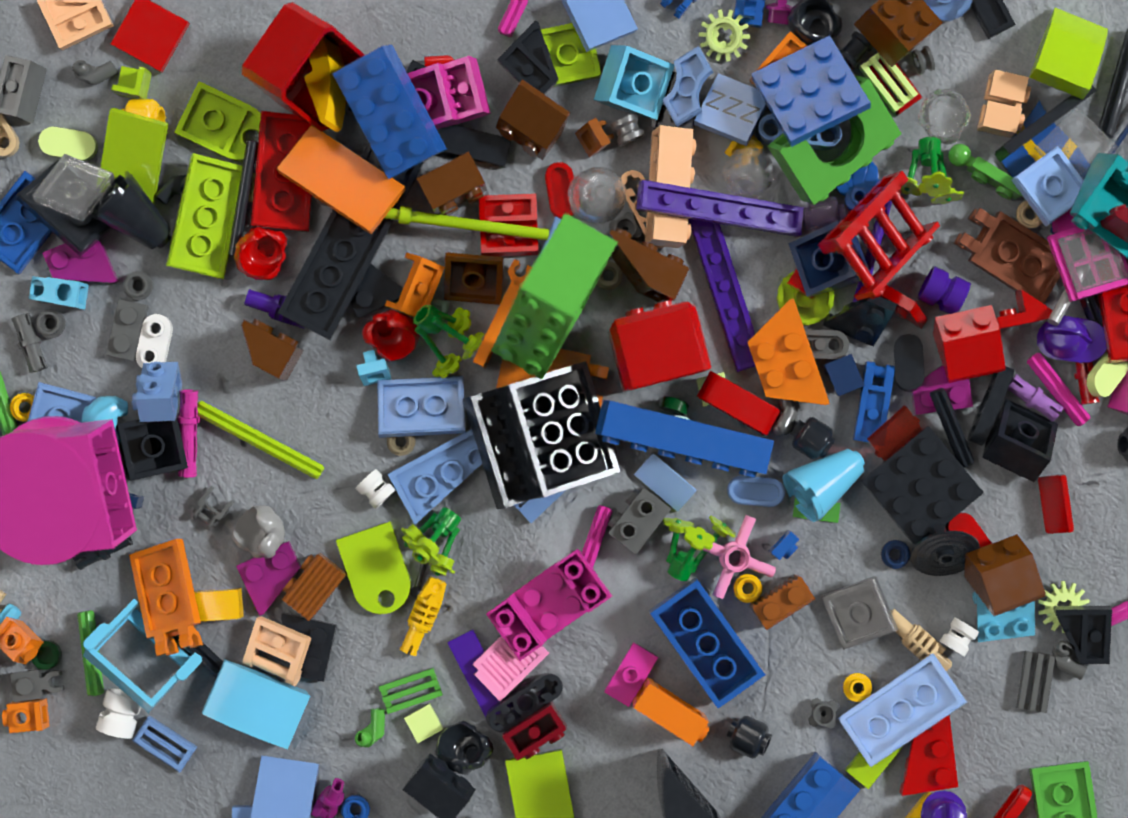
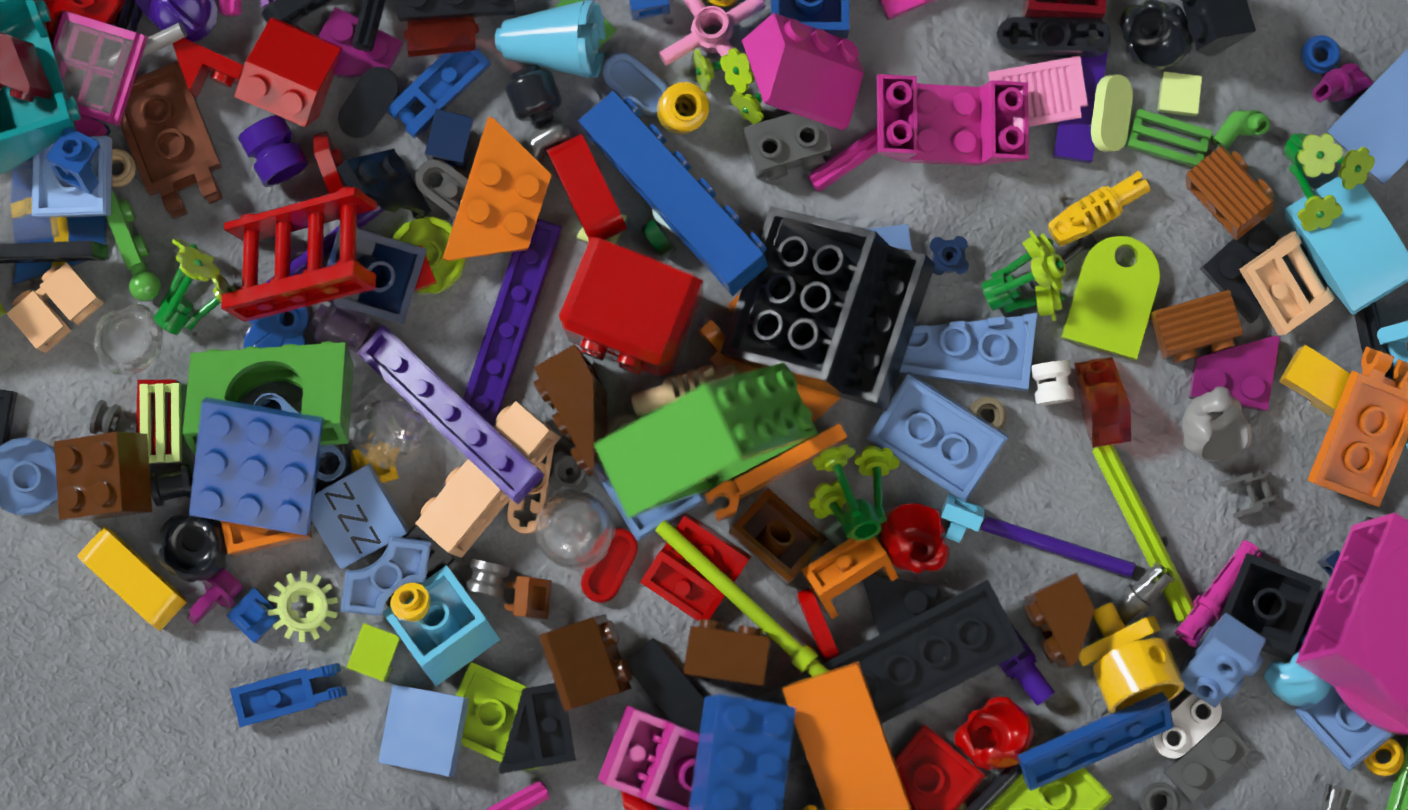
camera: 145 degrees left, 5 degrees down
(198, 291) = (1096, 741): none -> blue tile
(200, 346) = (1137, 673): none -> yellow piece
(231, 363) = (1115, 633): none -> yellow tile
(234, 395) = (1138, 596): none -> dark grey pin
(304, 393) = (1057, 546): none -> dark purple bar
(311, 738) = (1316, 155): none -> lime plant
(337, 499) = (1103, 402): none -> clear red slope
(350, 682) = (1230, 191): none -> dark orange brick
(412, 243) = (817, 624): none -> red tile
(456, 680) = (1111, 113): none -> yellowish green tile
(500, 522) = (957, 248): none -> dark blue plate
(590, 327) = (677, 386): none -> tan hinge
(654, 78) = (417, 608): none -> yellow plate
(658, 567) = (805, 70): none -> dark pink slope
(661, 37) = (373, 652): none -> lime panel
(665, 482) = (728, 164): light blue slope -> none
(706, 496) = (685, 95): none -> yellow head
(1057, 192) = (72, 158): none -> blue bracket

